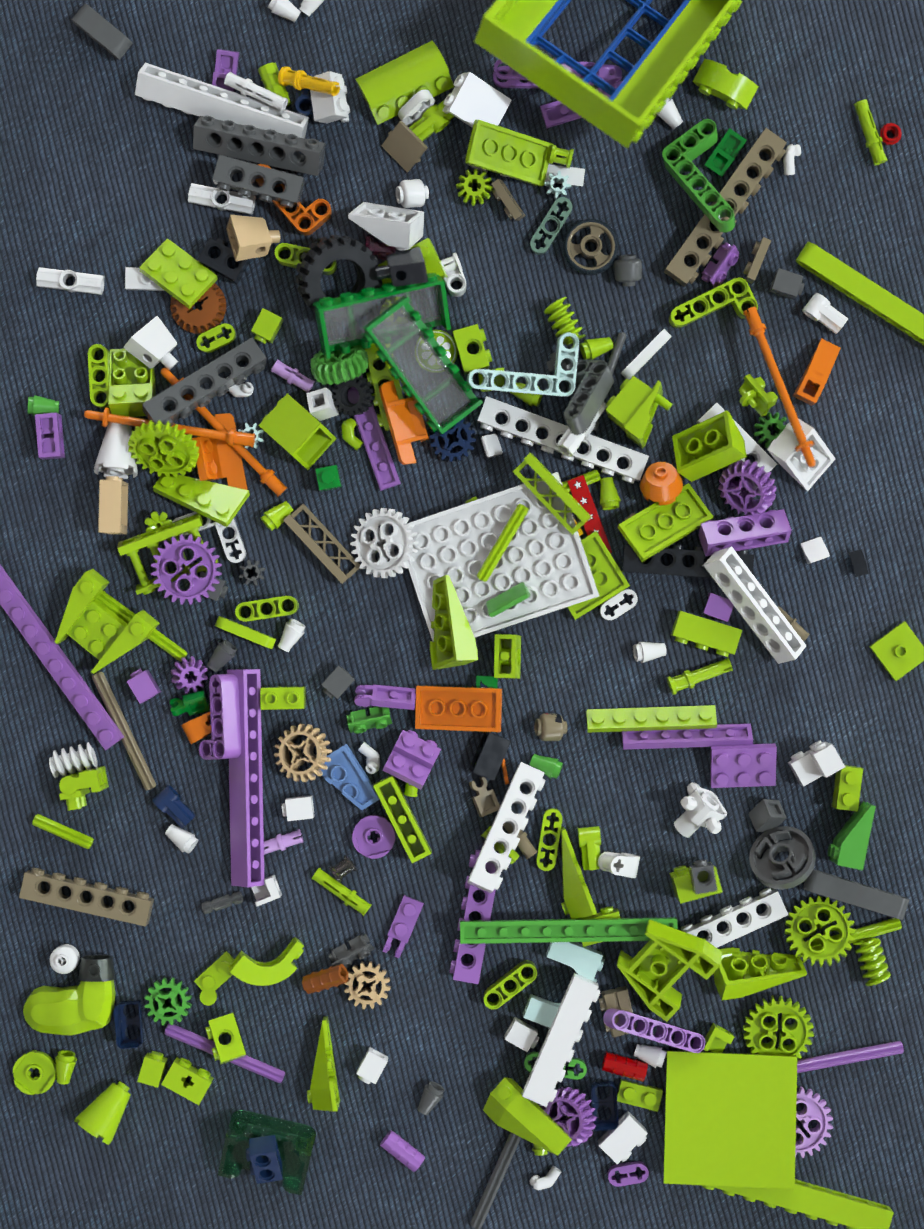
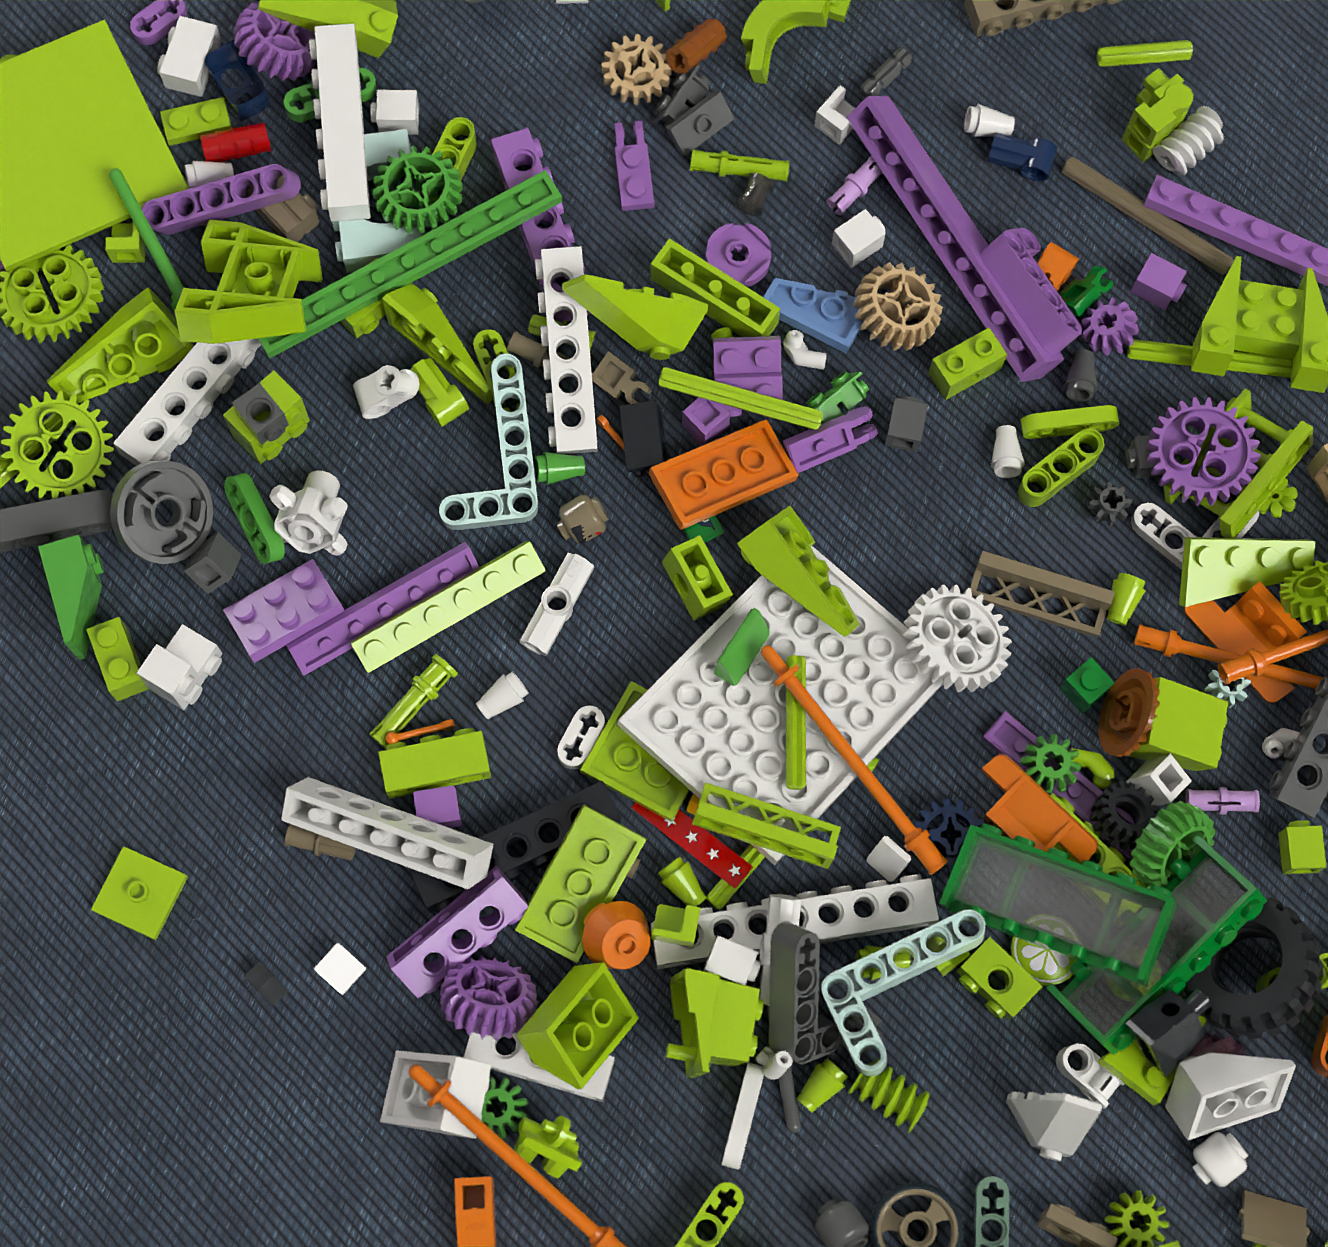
camera: 150 degrees right, 15 degrees down
(317, 448) = (1128, 712): none -> dark orange gear
(349, 930) = (700, 123): none -> dark grey plate
(369, 449) = (1052, 752): none -> bright green gear
(426, 744) = (740, 398): none -> lime axle
(449, 747) = (705, 420): none -> medium lavender panel
(454, 822) = (638, 316): none -> lime wedge
(474, 444) = (915, 838): none -> orange bar
(490, 259) = (1053, 1121): none -> white wedge
(529, 971) = (439, 176): none -> bright green gear
(572, 785) = (510, 456): none -> light aqua beam
(604, 677) = (547, 622): none -> white piece
(610, 433) = (732, 961): none -> white brick
(616, 370) = (774, 1063): none -> white arm
(628, 470) = (676, 925): none -> lime panel
(705, 985) = (147, 235): none -> bright green piece
(722, 659) = (393, 737): none -> orange hinge
(731, 829) = (254, 518): none -> bright green beam

